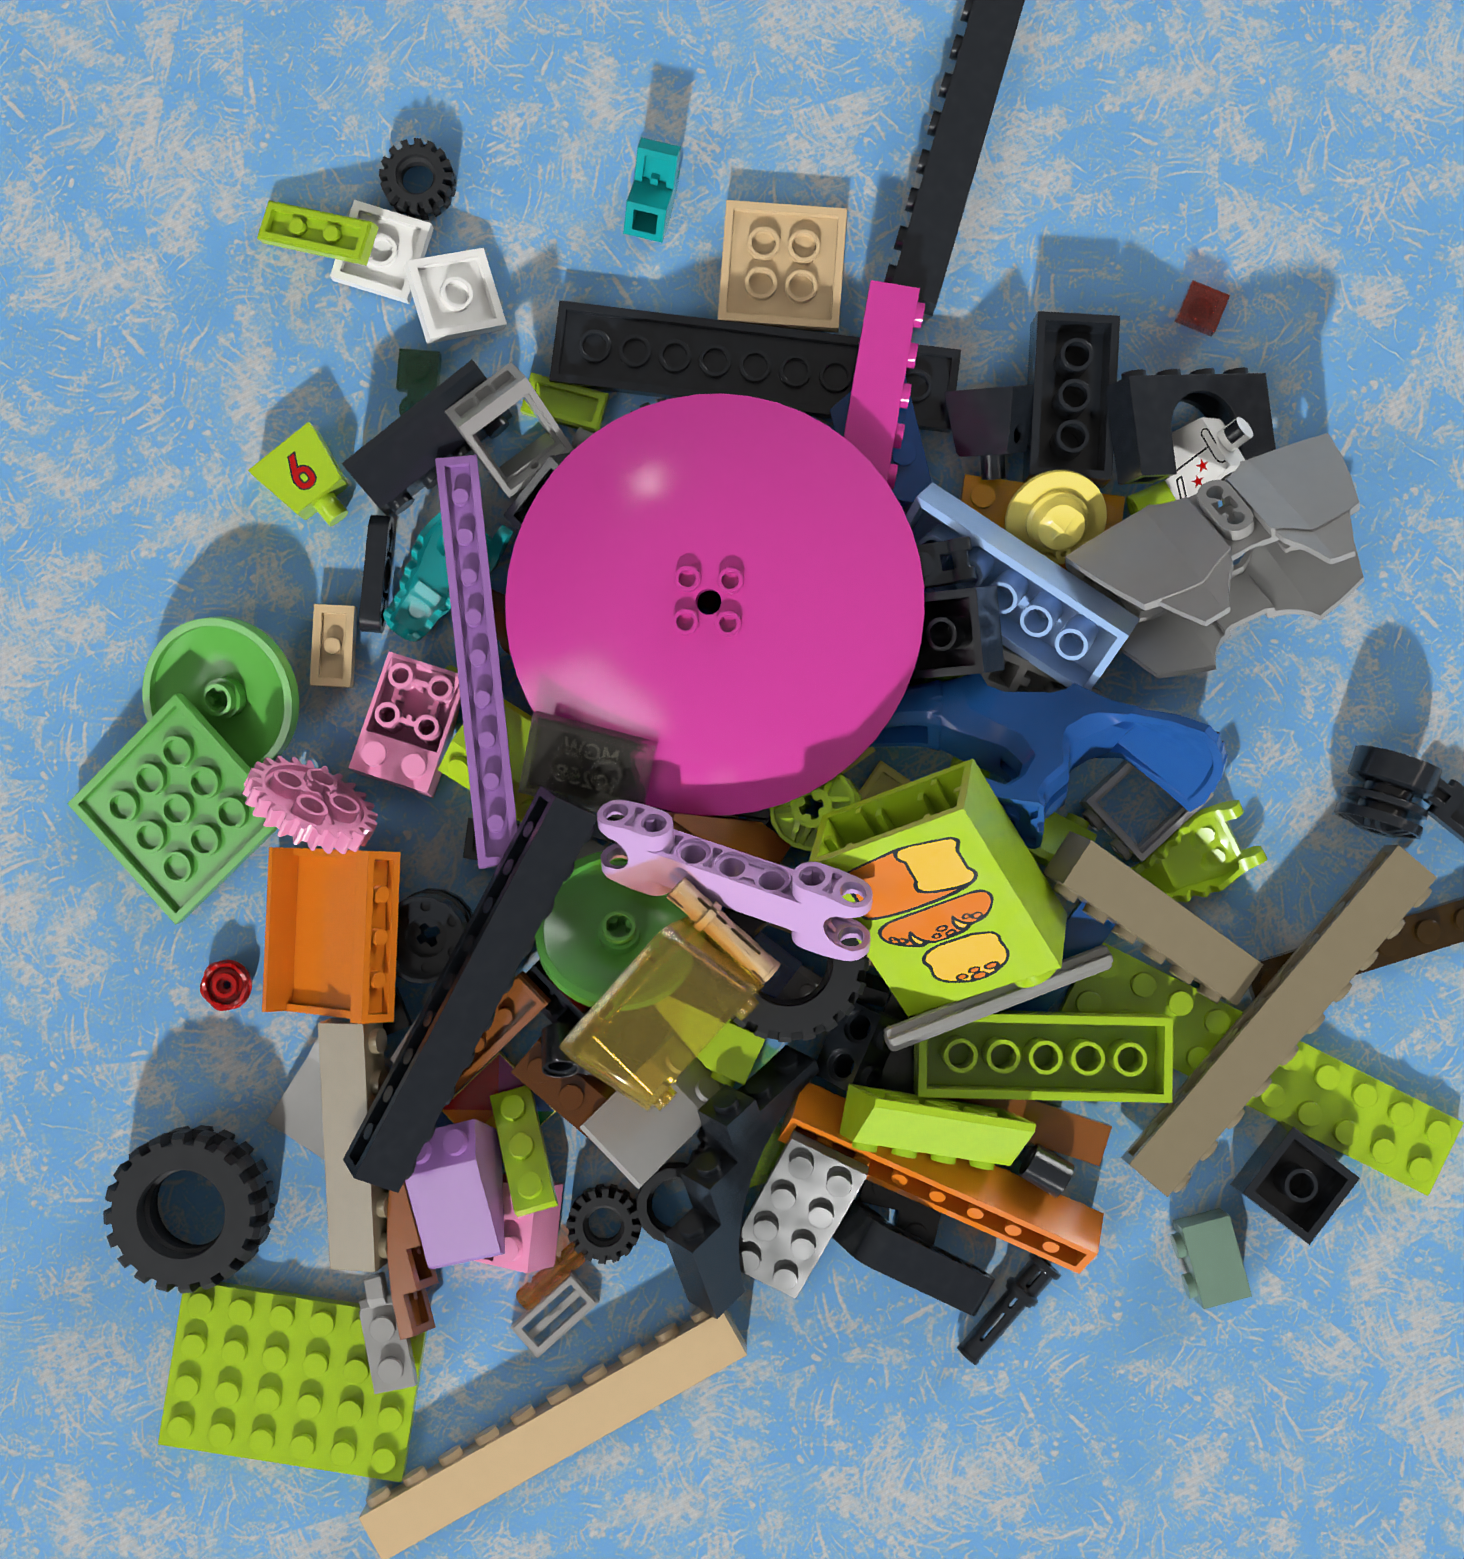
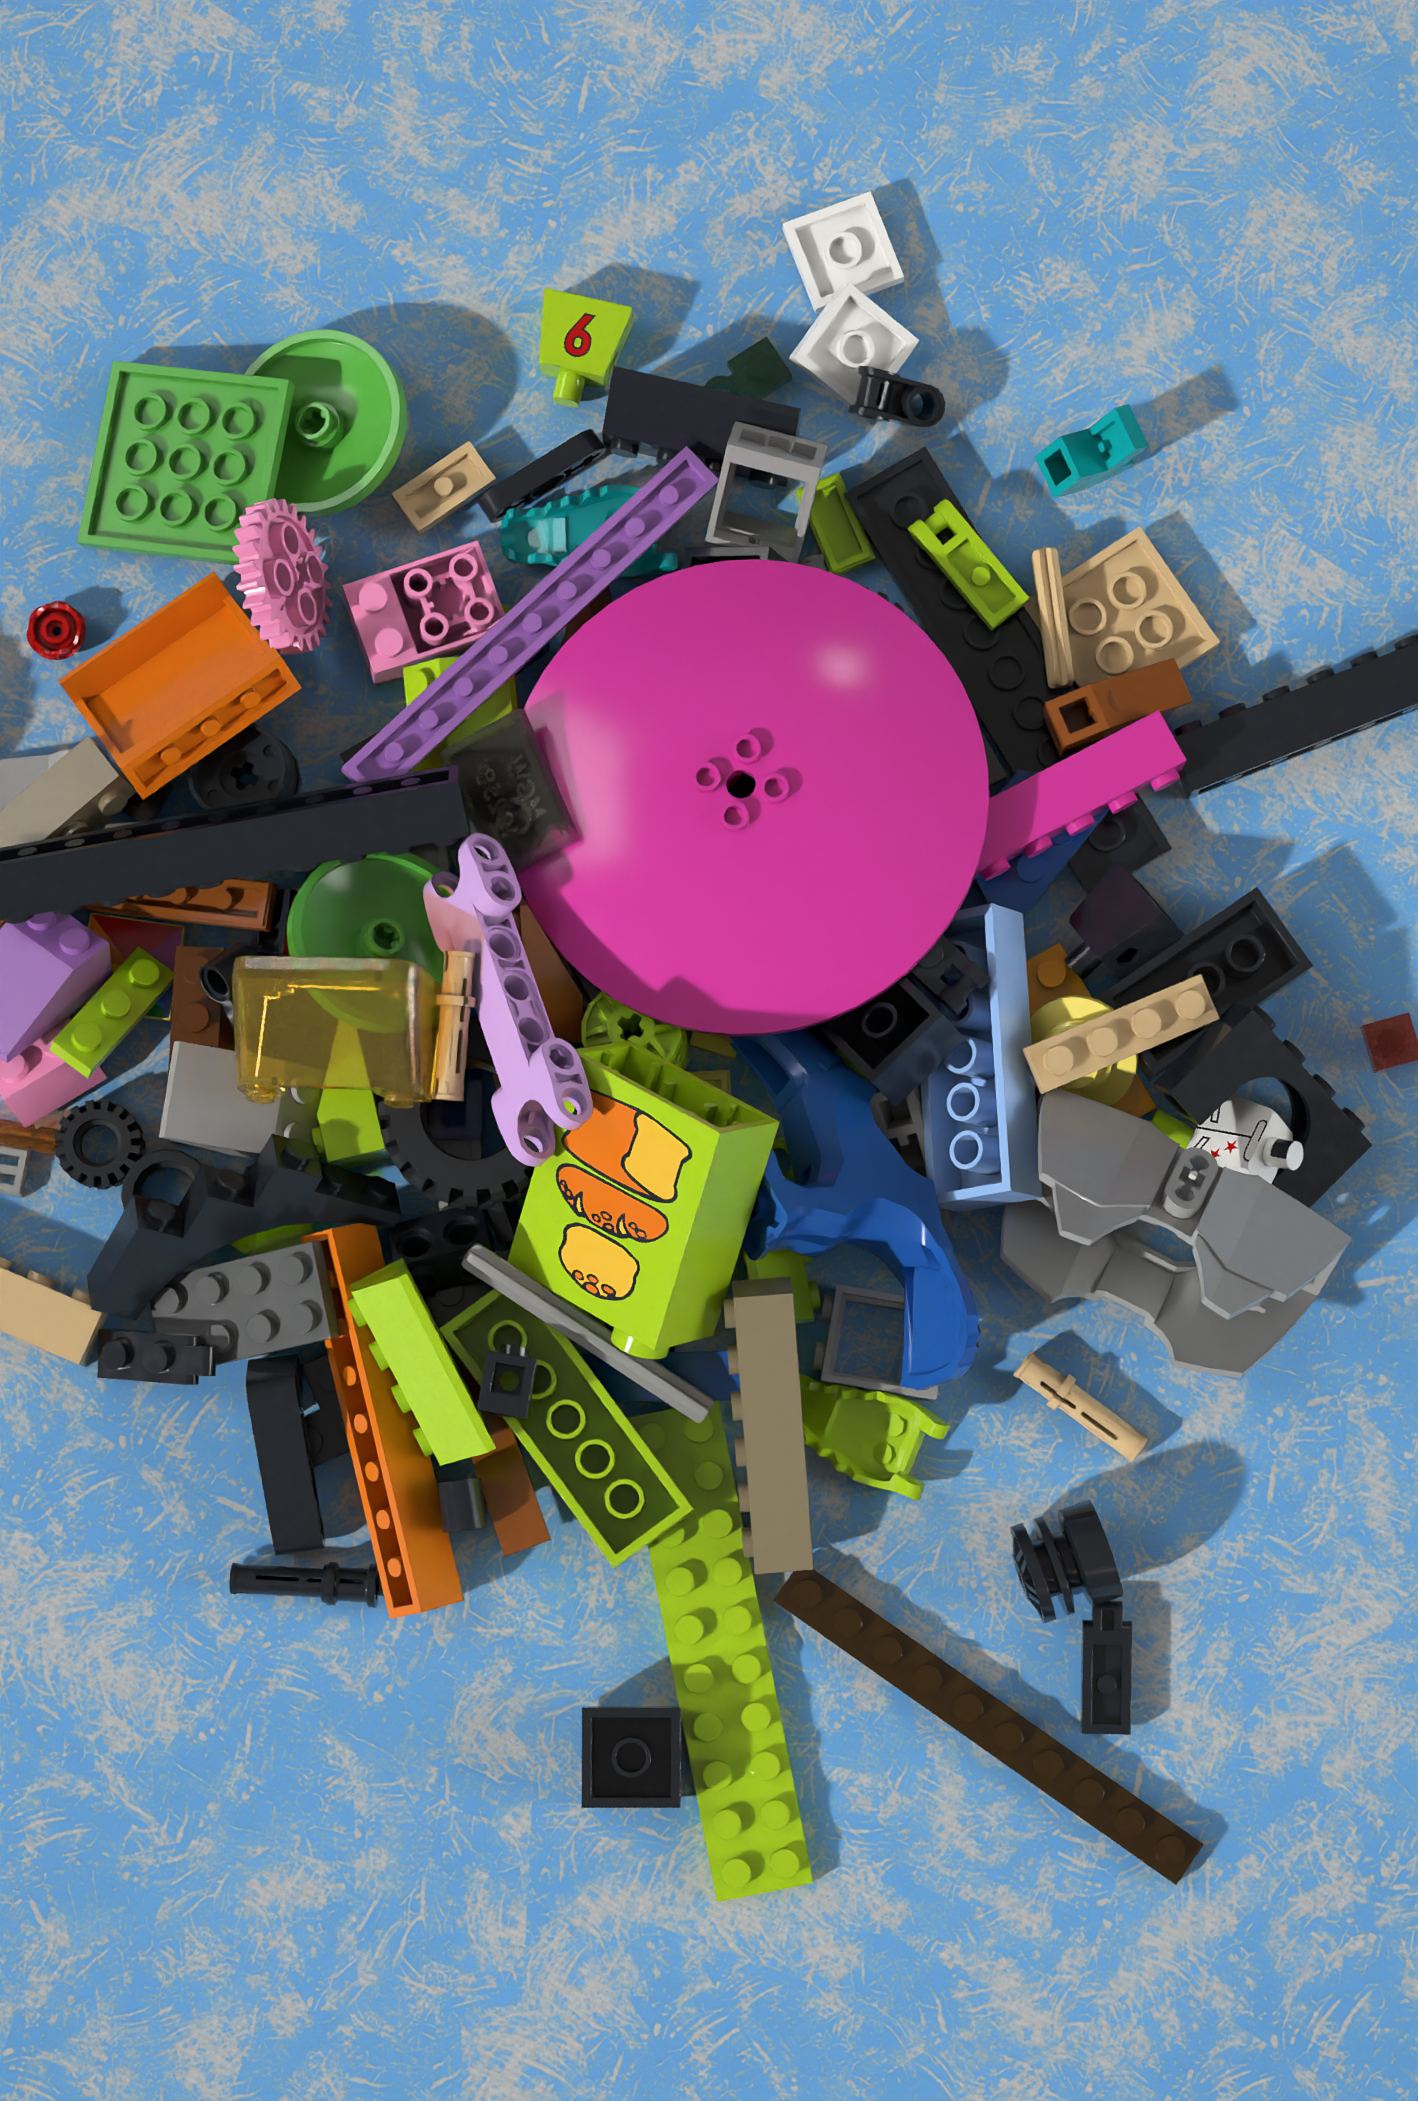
camera: 55 degrees right, 5 degrees down
(317, 232) = (813, 182): lime tile -> none
(409, 157) = (936, 206): black tyre -> none
(508, 297) = (889, 397): none -> black piece
(665, 332) = (969, 565): none -> lime plate
(745, 305) = (1052, 617): none -> tan axle
(780, 1298) = (154, 1356): none -> black hinge
(839, 310) = (1113, 704): none -> dark orange slope
(1007, 1091) = (493, 1397): none -> black brick
(1071, 479) = (1120, 1034): none -> tan plate
(1210, 1258) = (498, 1737): sand green brick -> none
(1268, 706) = (1081, 1406): none -> tan pin
(1279, 1019) = (772, 1620): dark tan brick -> none

